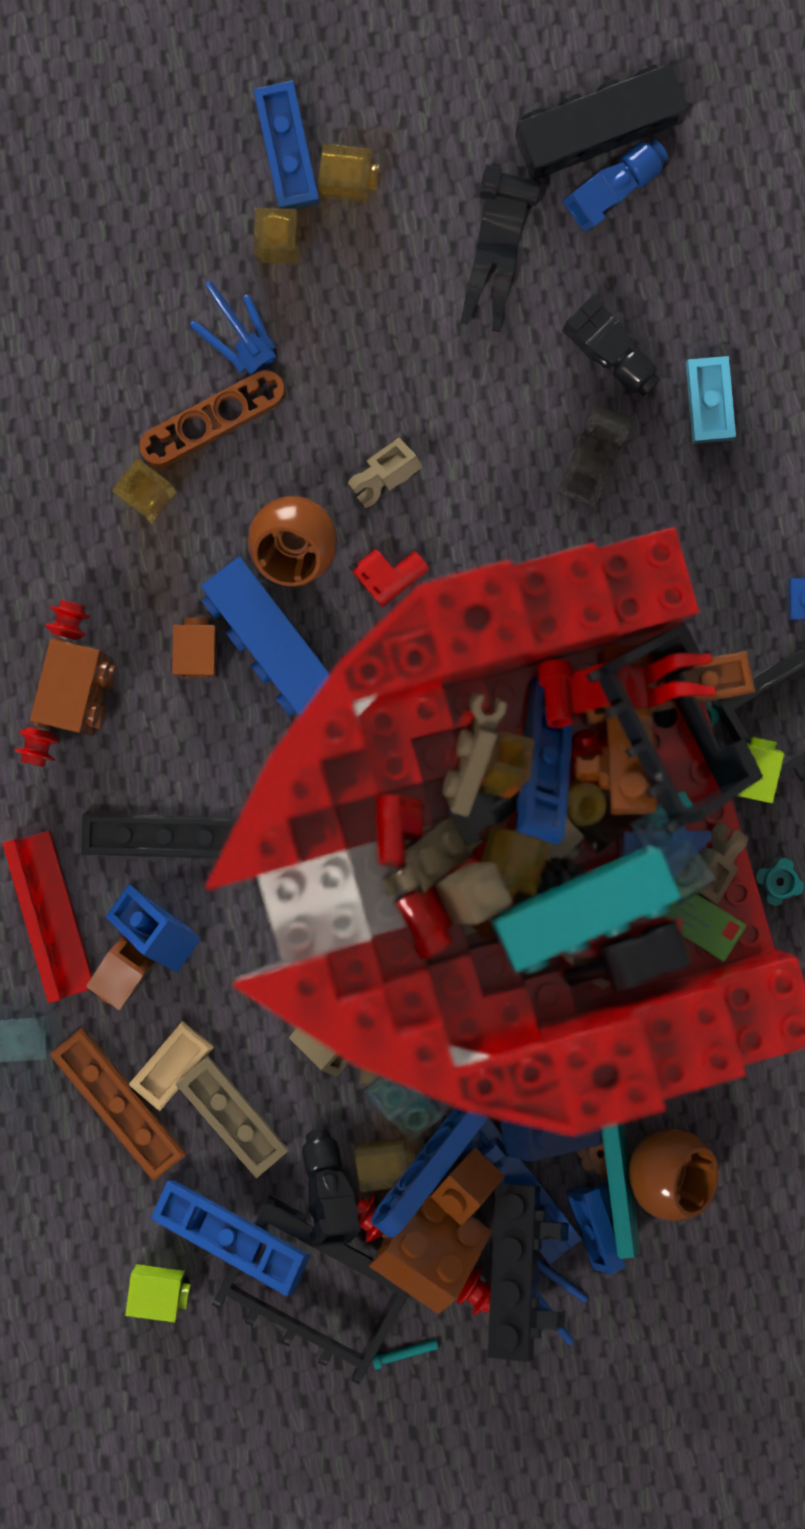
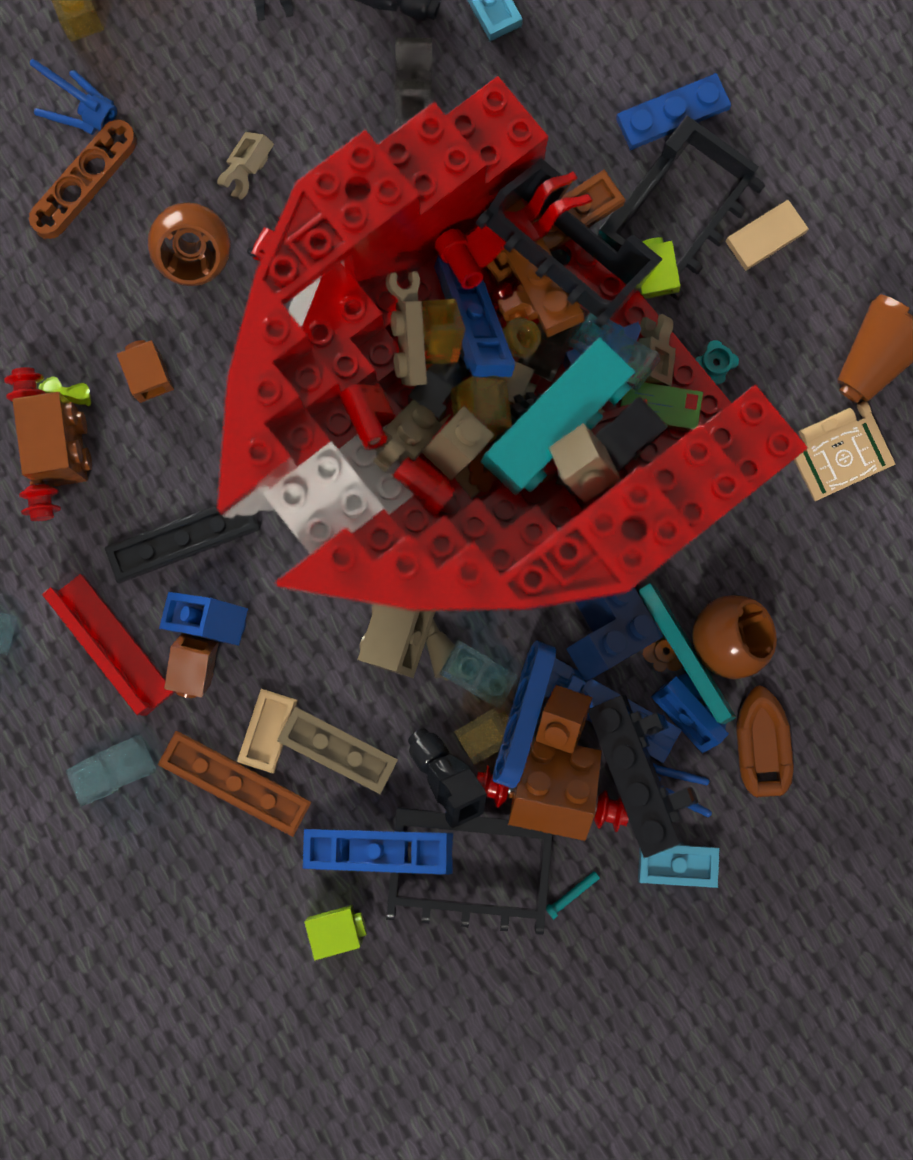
camera: 25 degrees left, 5 degrees down
(117, 643) = (76, 393): none -> lime piece
(144, 490) = (47, 255): clear yellow brick -> none
(266, 633) = (184, 325): blue brick -> none
(533, 1380) = (681, 866): none -> medium azure plate
(588, 976) = (584, 463): none -> dark tan brick
(658, 1287) = (764, 743): none -> dark orange piece

